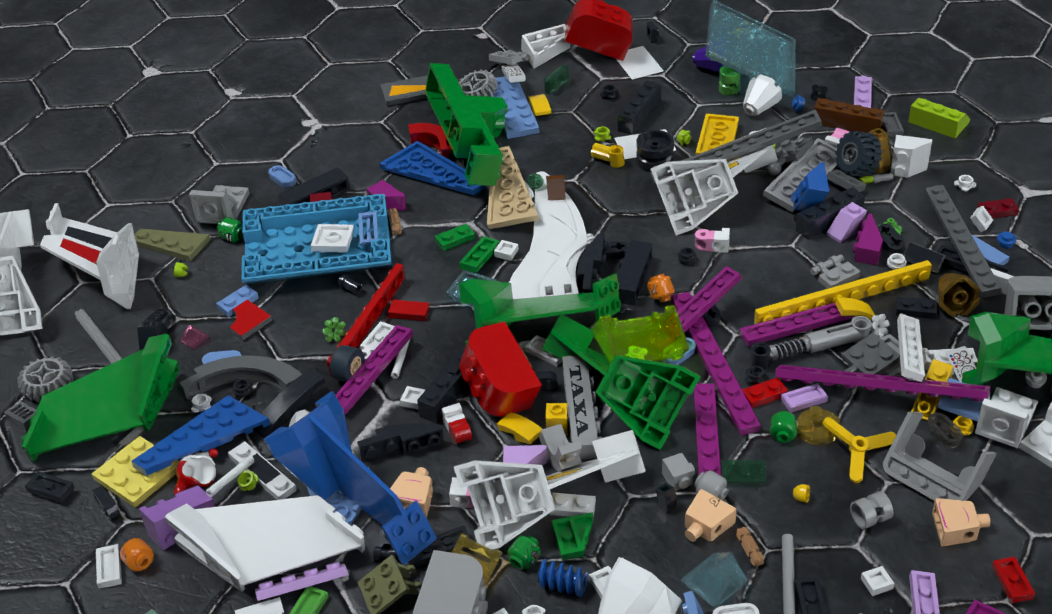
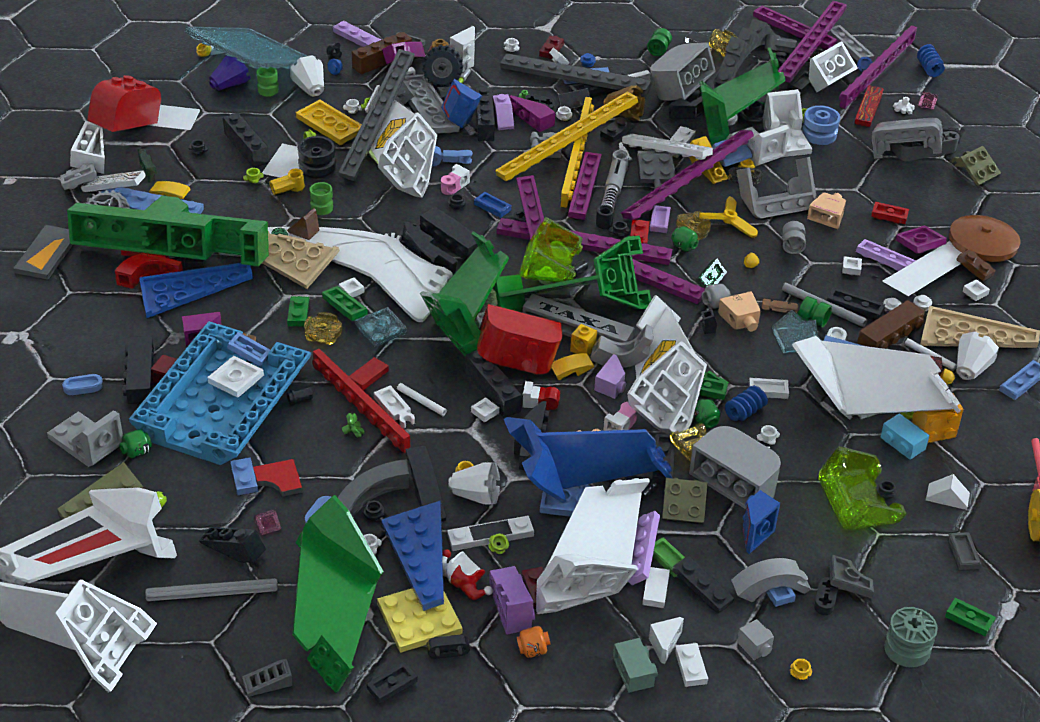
camera: 65 degrees left, 0 degrees up
(43, 377) = (234, 650): light grey gear -> none
(108, 566) = (525, 669): white tile -> none
(230, 476) = (493, 547): white piece -> none
(346, 362) = (417, 427): black wheel -> none
(373, 366) = (430, 420): magenta plate -> none
(450, 262) = (314, 328): none -> clear yellow plate
(602, 179) = (321, 198): none -> bright green wheel
(660, 287) = (488, 226): orange head -> none
(678, 471) = (688, 305): light grey brick -> none
(706, 274) = (492, 204): none -> blue tile
(738, 214) = (460, 156): none -> medium blue piece
(759, 577) = (812, 310): none -> green wheel
(848, 274) = (566, 136): none -> yellow plate
(852, 122) = (413, 47): none -> magenta slope
(852, 307) = (598, 153): yellow slope -> none
(938, 118) = (428, 18): lime slope -> none
(960, 360) = (689, 135): white sticker -> none

